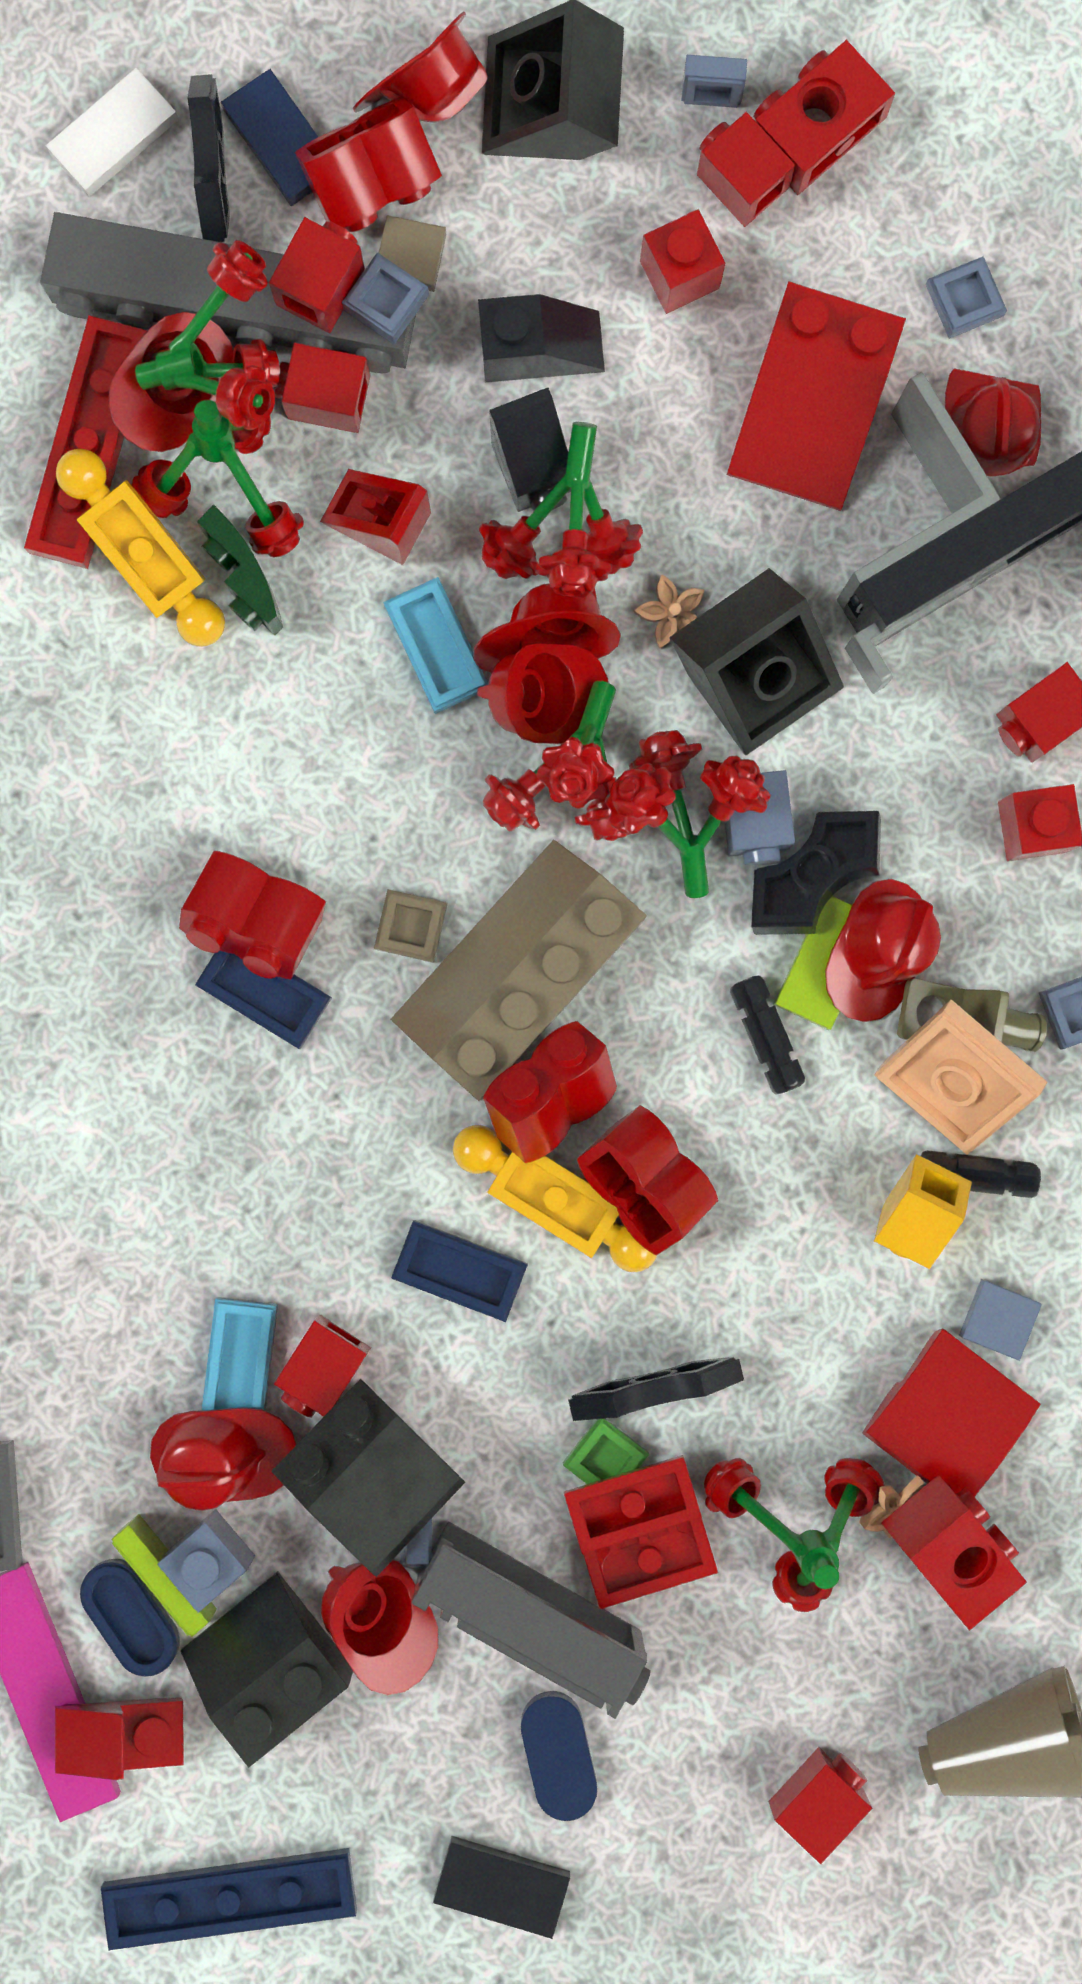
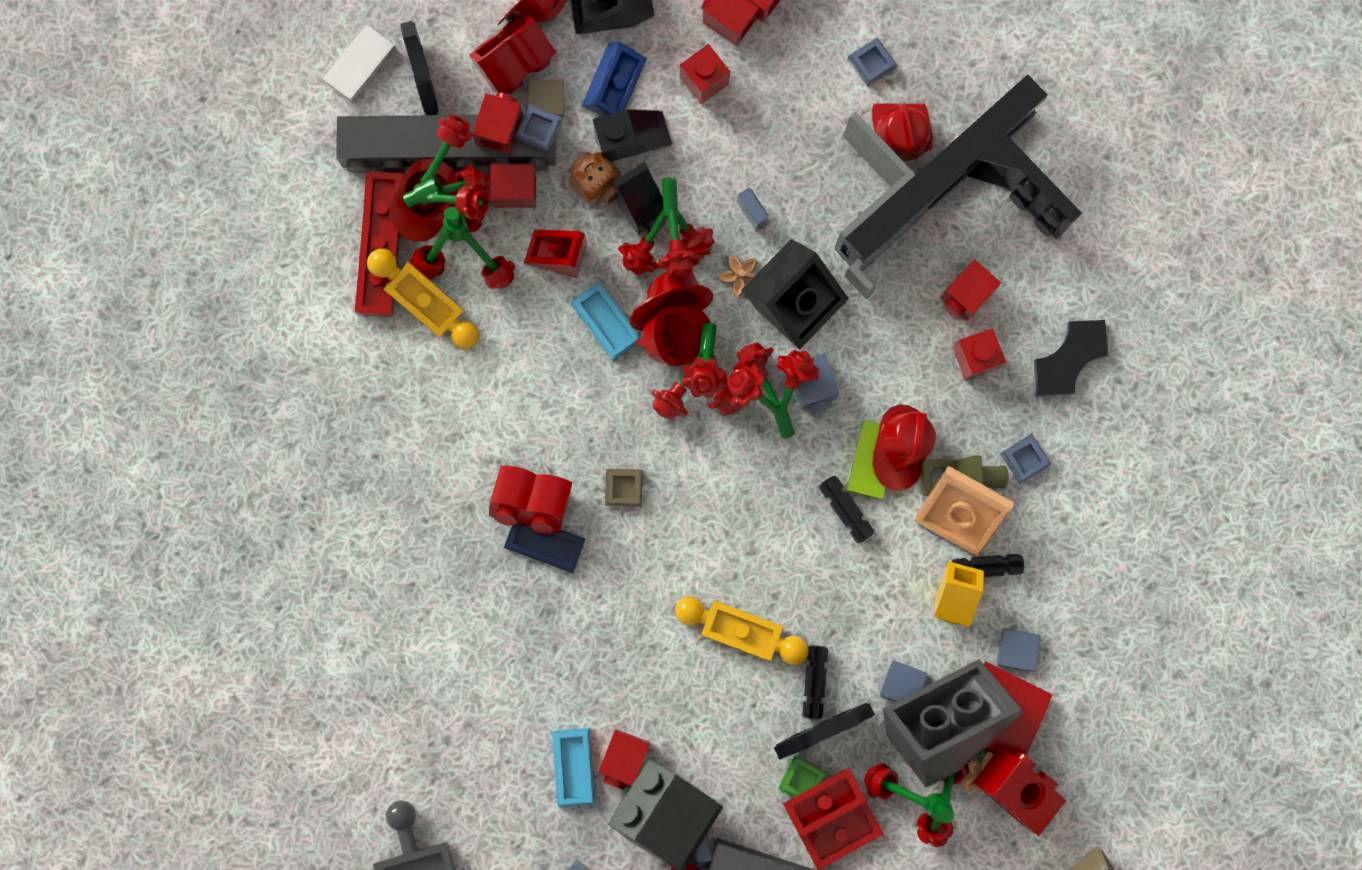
camera: 10 degrees left, 5 degrees down
(219, 1455) = (574, 824): red piece -> none
(253, 595) = (490, 308): dark green slope -> none
(273, 131) = (452, 45): dark blue tile -> none
(459, 1271) = (693, 685): dark blue tile -> none
(460, 400) = (593, 178): none -> medium nougat head
(518, 968) = (692, 500): dark tan slope -> none
(531, 241) = (614, 79): none -> blue slope
(547, 1094) = (726, 567): red brick -> none
(648, 1180) = (794, 608): red brick -> none
(658, 1306) = (815, 682): none -> black axle
(715, 506) = (752, 209): none -> sand blue tile
(794, 892) = (845, 422): black tile -> none
(801, 1337) = (902, 681): none -> sand blue tile
(815, 396) = (797, 135): red slope -> none
(864, 1417) = (949, 721): none -> dark grey slope

